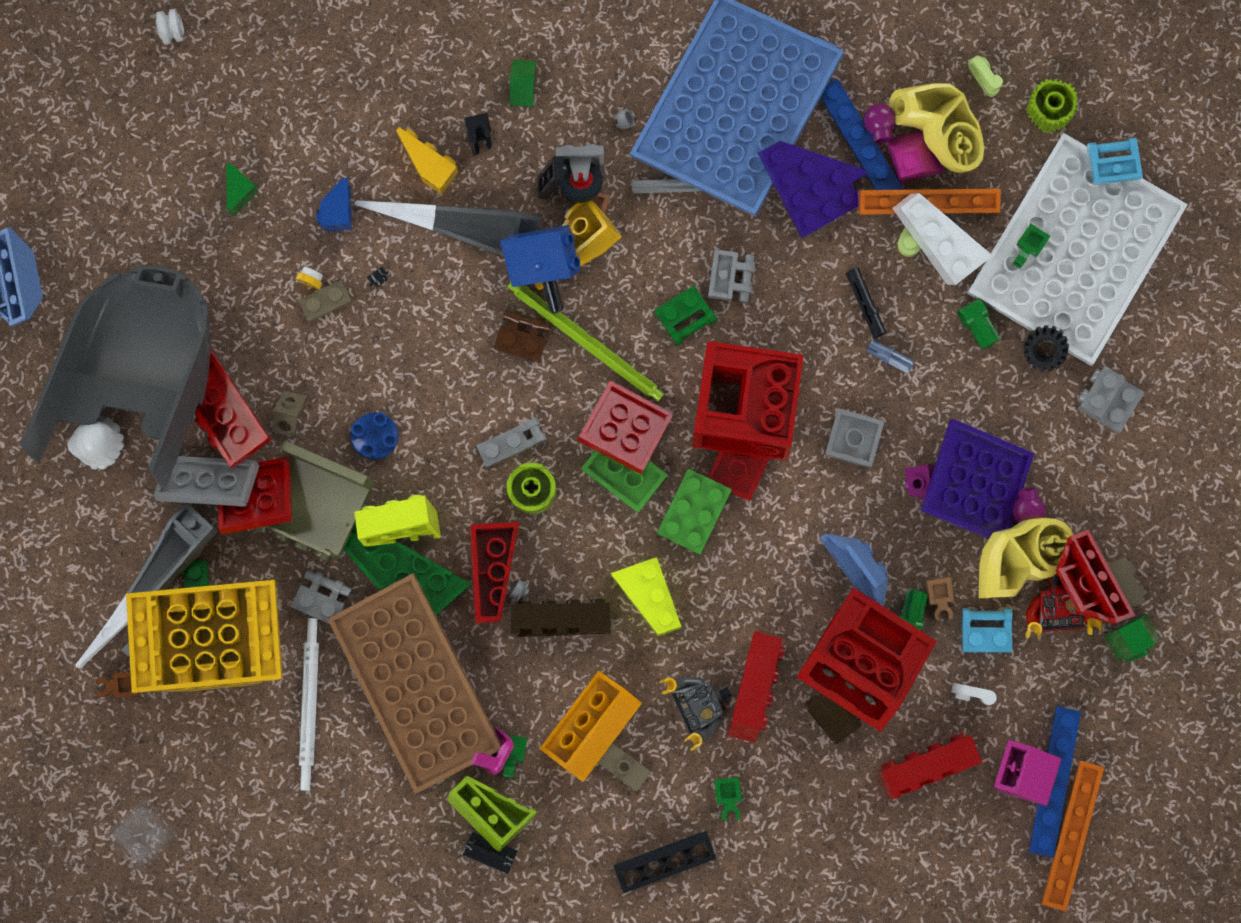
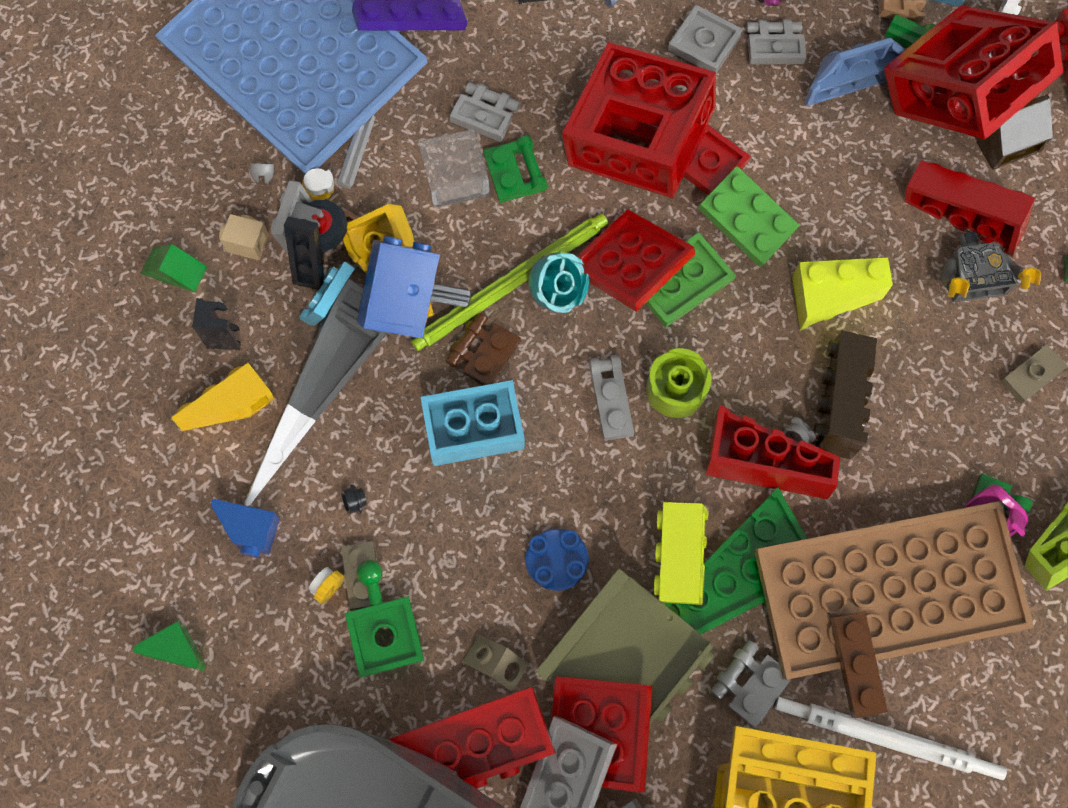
camera: 80 degrees left, 10 degrees down
(300, 330) = (365, 622): none -> green plate
(350, 666) = (858, 665): none -> reddish brown plate
(456, 344) = (473, 423): none -> medium azure brick
(529, 205) = (324, 298): none -> medium azure plate
(562, 126) = (244, 236): none -> tan brick
(587, 375) = (558, 282): none -> teal cylinder
(590, 726) = (981, 396): light orange slope -> none
(626, 166) = (318, 184): none -> white piece
(664, 267) = (454, 168): none -> clear piece
(864, 500) = (776, 48): none -> light grey plate

